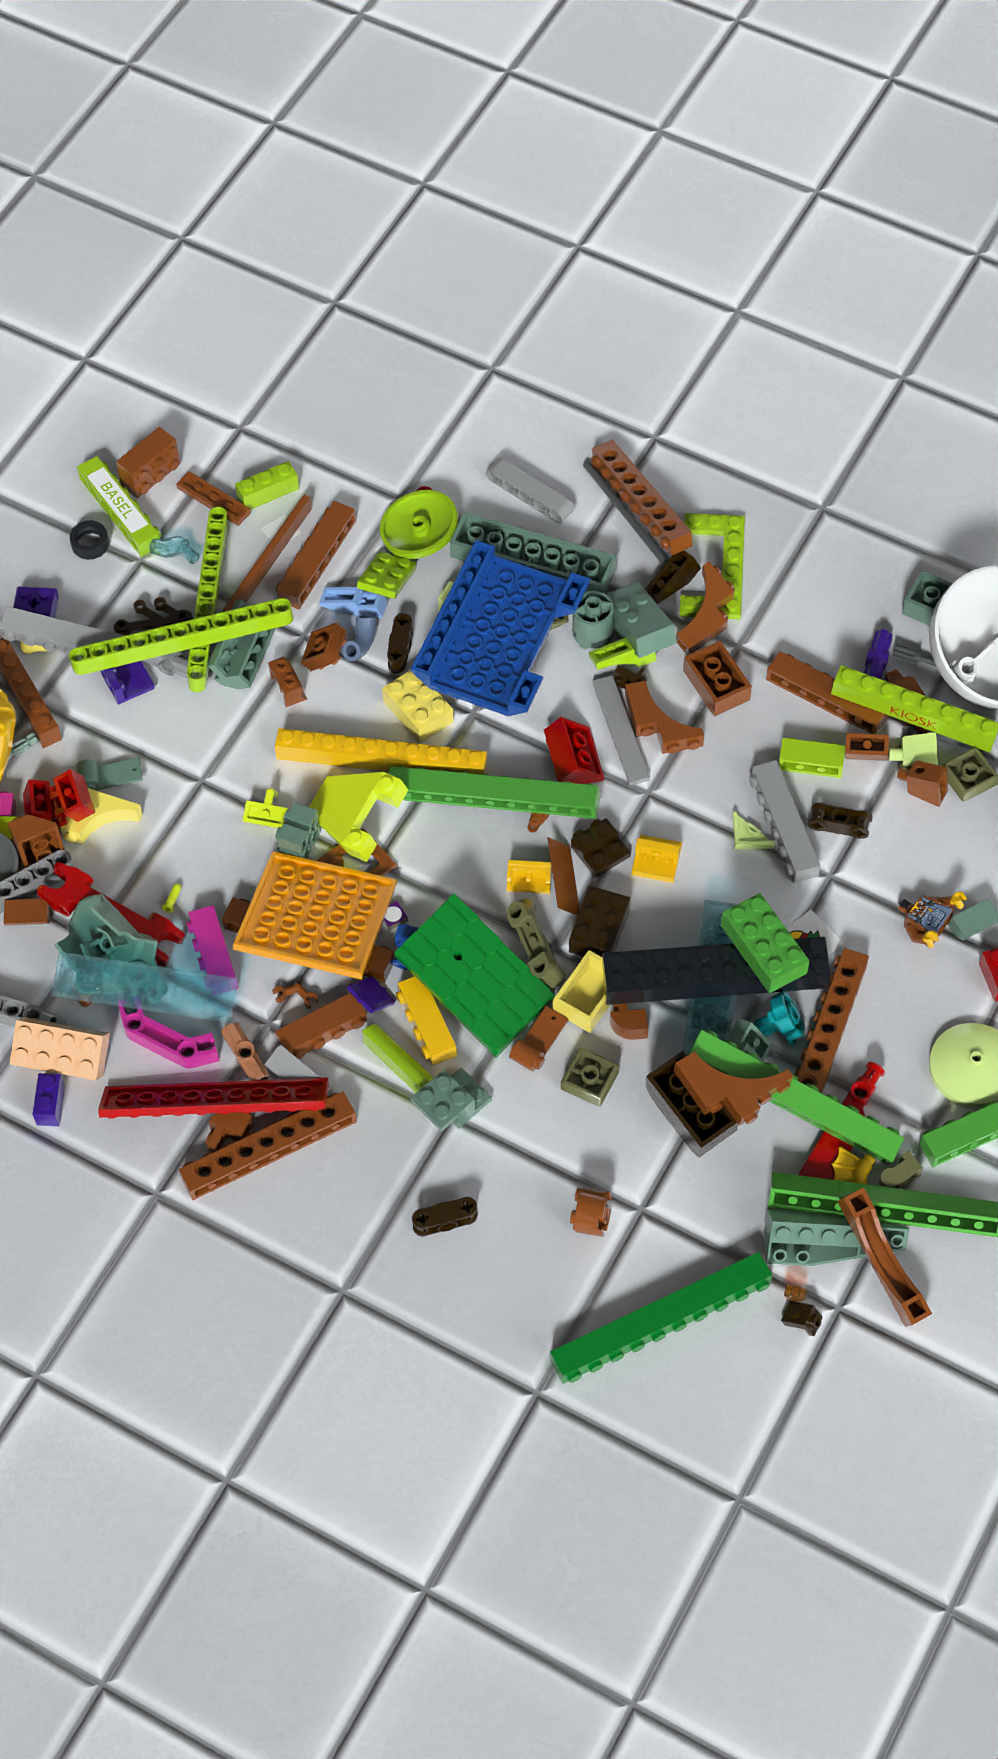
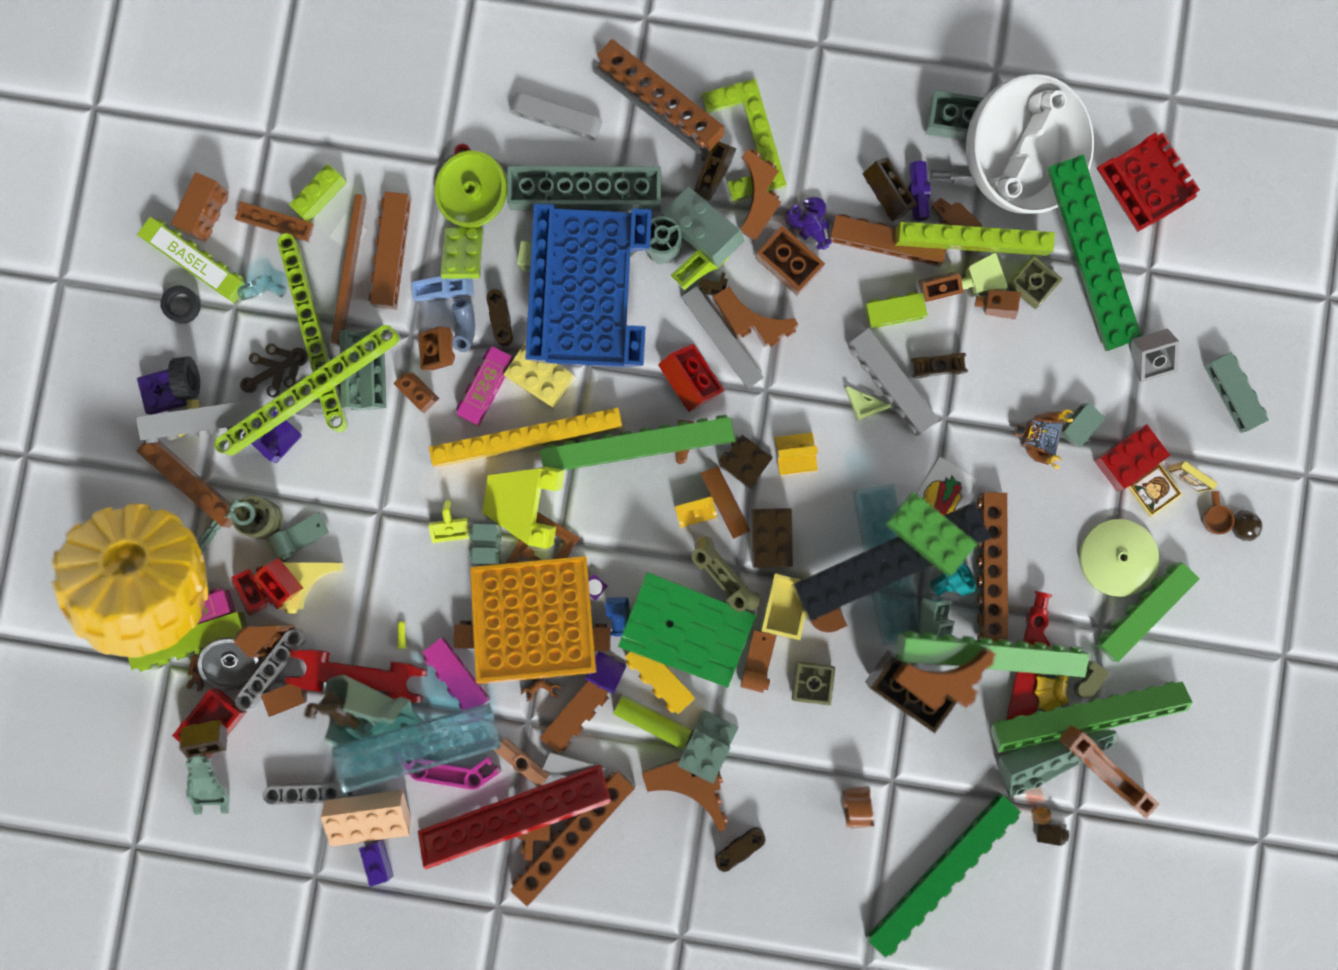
camera: 15 degrees left, 25 degrees up
(64, 597) = (184, 378): none -> black tyre
(64, 713) = (230, 514): none -> sand green piece
(76, 917) = (333, 706): none -> dark brown torso
(77, 738) = (264, 509): none -> olive wheel
(356, 699) = (485, 386): none -> dark pink brick
(411, 1127) = (676, 779): none -> dark orange arch
(753, 654) = (811, 221): none -> dark purple animal
(845, 643) = (889, 189): none -> dark brown brick

